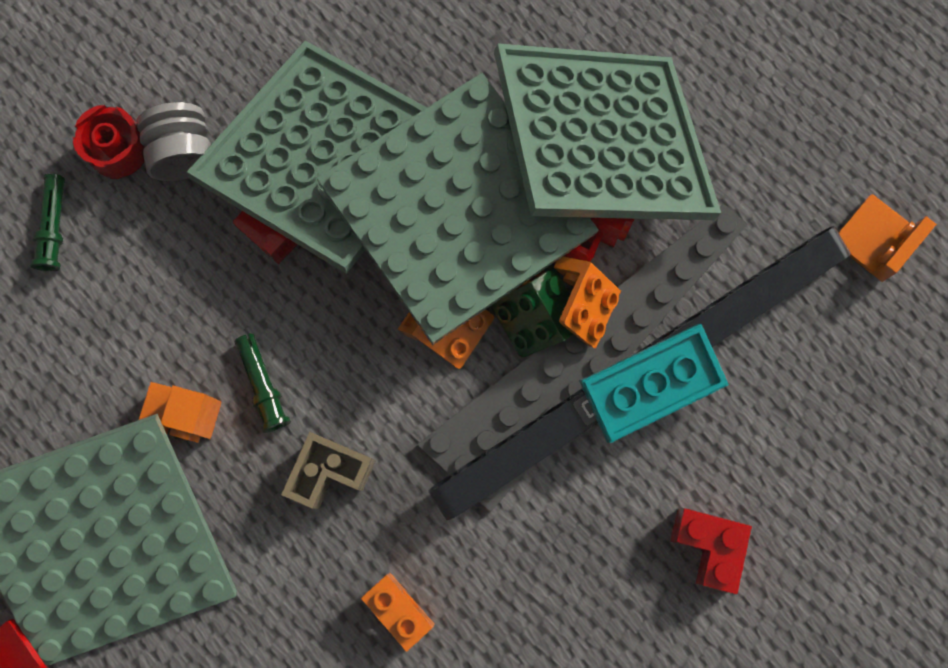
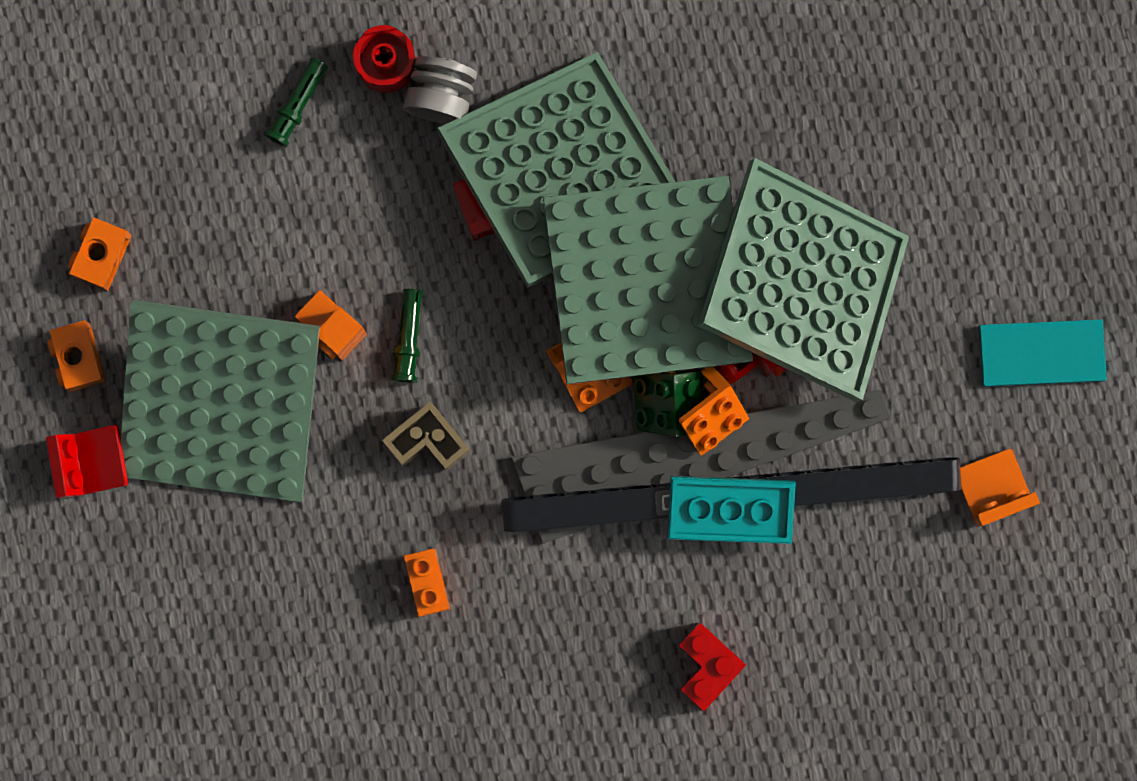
camera: 20 degrees right, 5 degrees up
(847, 97) = (1042, 353): none -> teal tile

